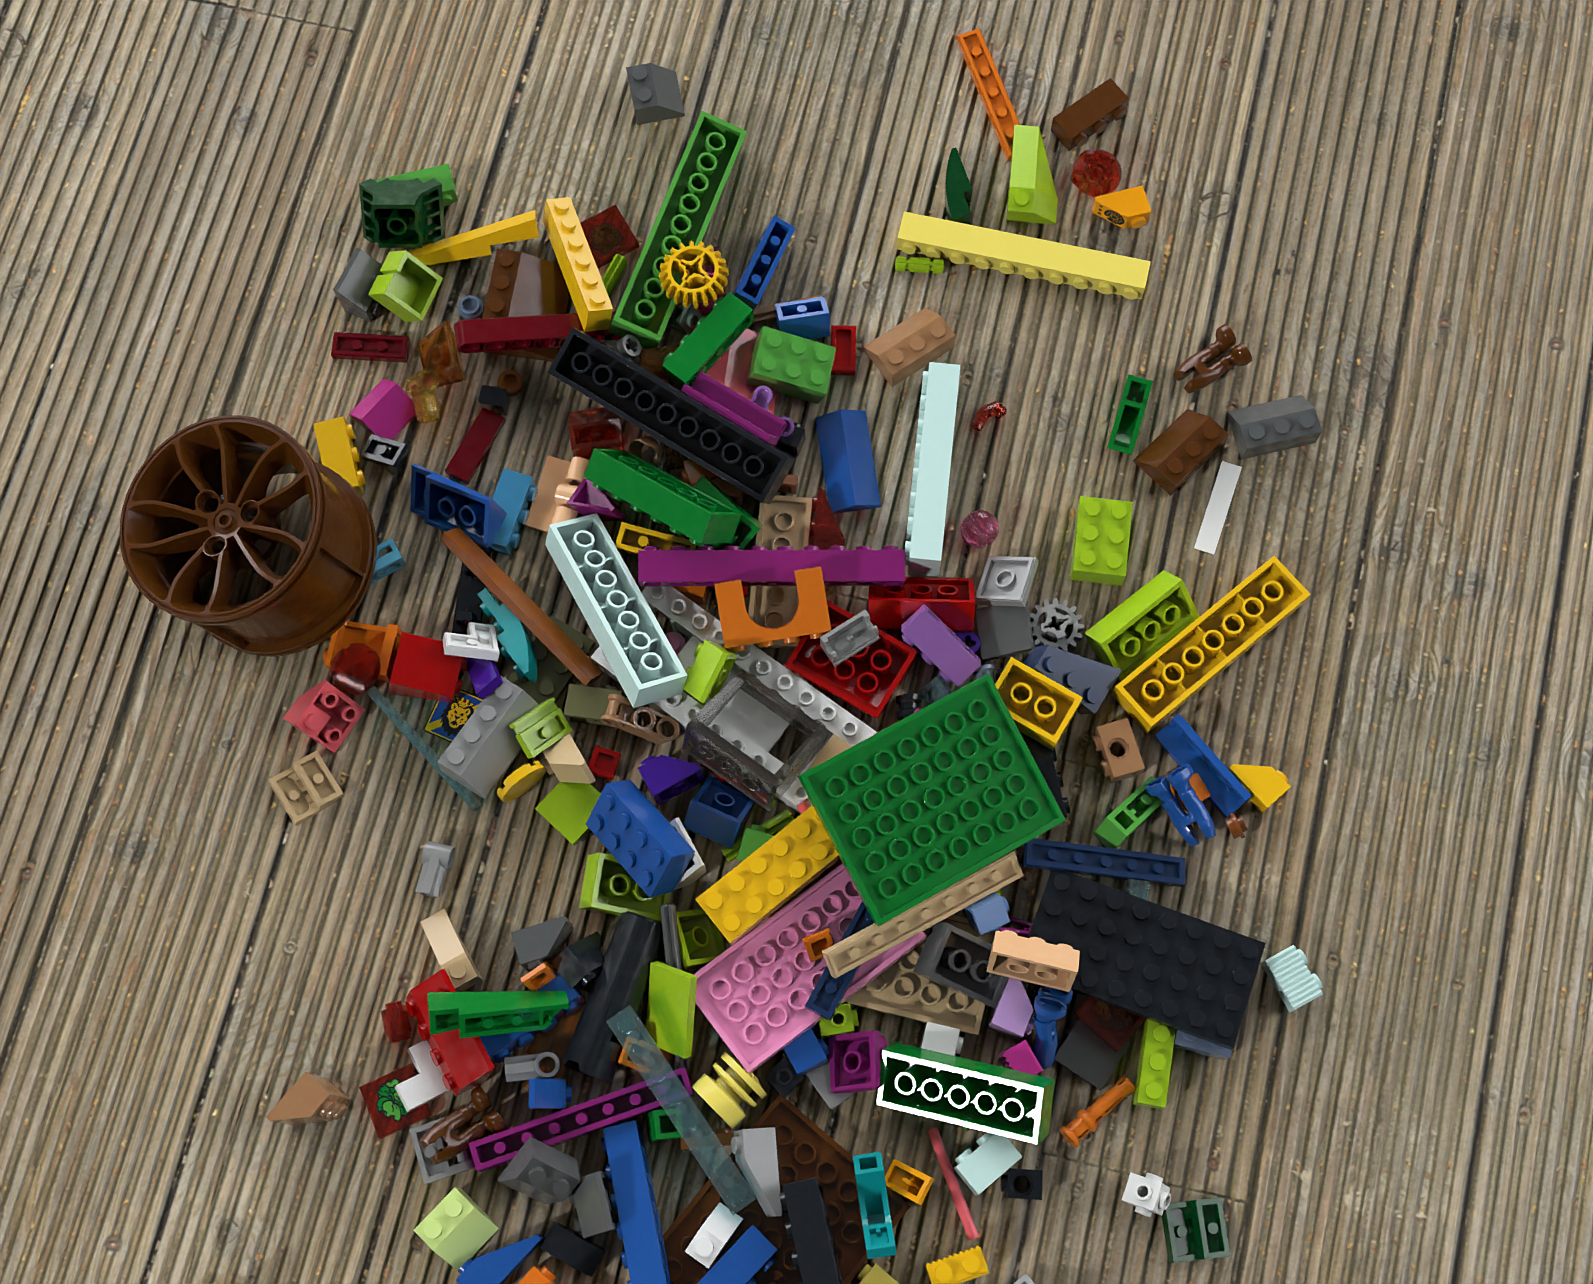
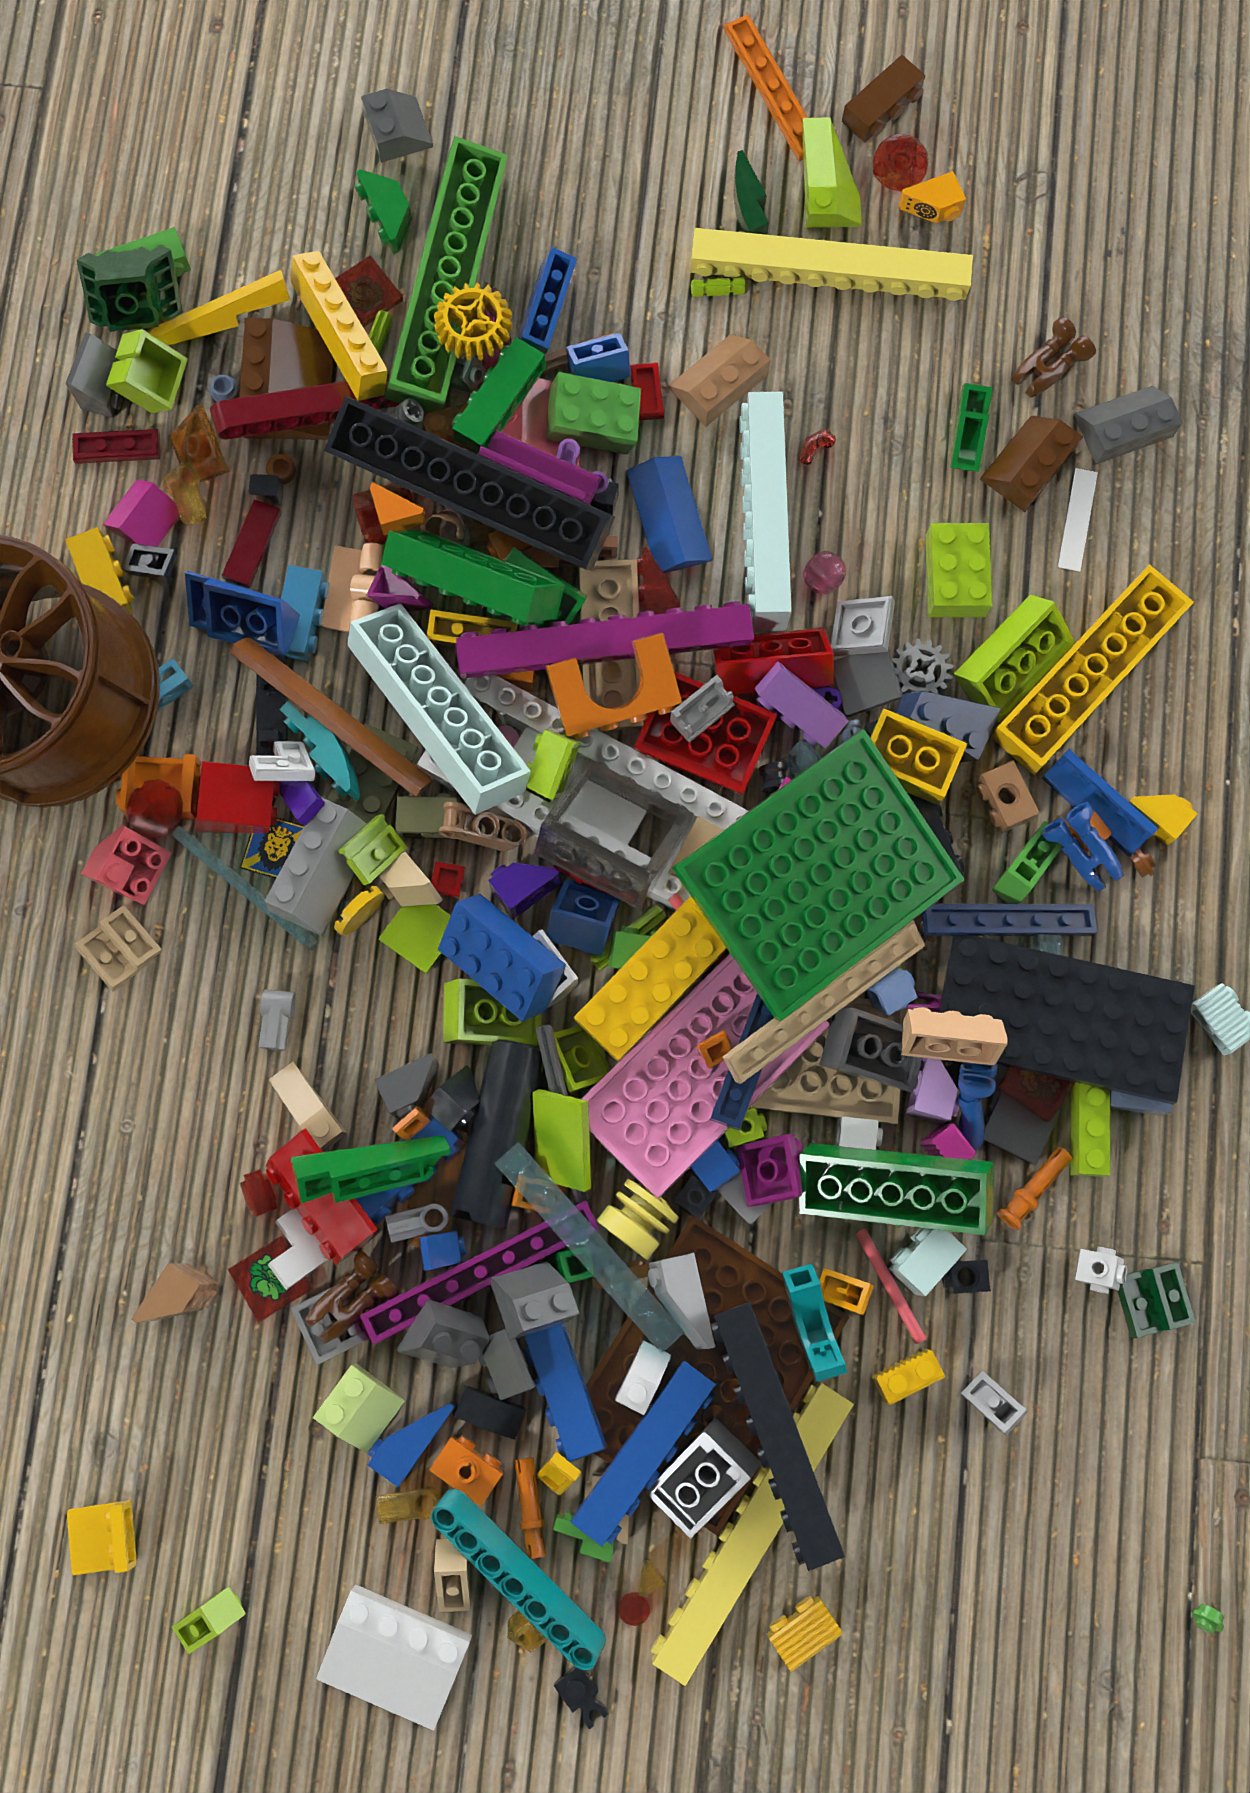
camera: 15 degrees left, 5 degrees up
(602, 432) = (395, 511): none -> orange slope
(624, 1150) = (533, 1299): none -> dark grey slope
(635, 164) = (386, 207): none -> green slope

